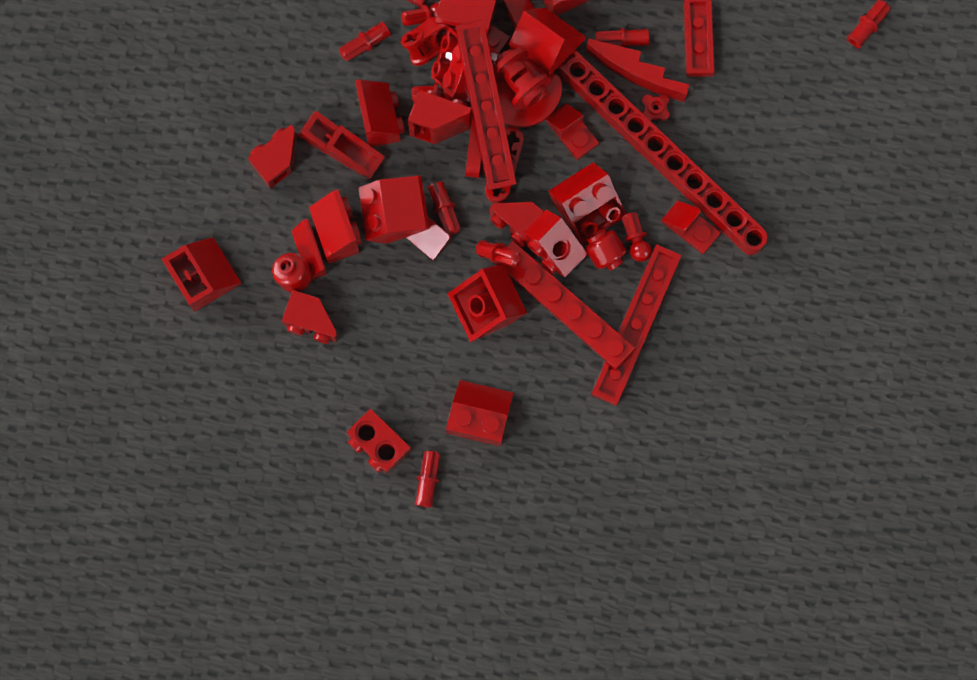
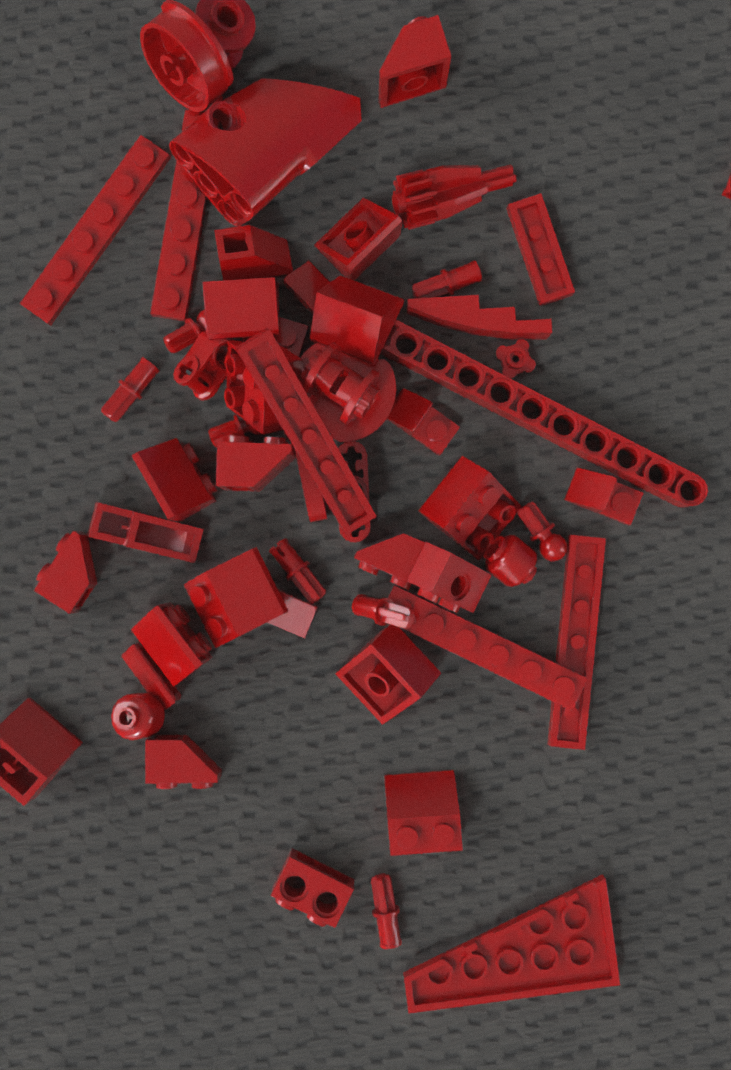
camera: 15 degrees left, 10 degrees up
(534, 547) = (539, 953): none -> red wing

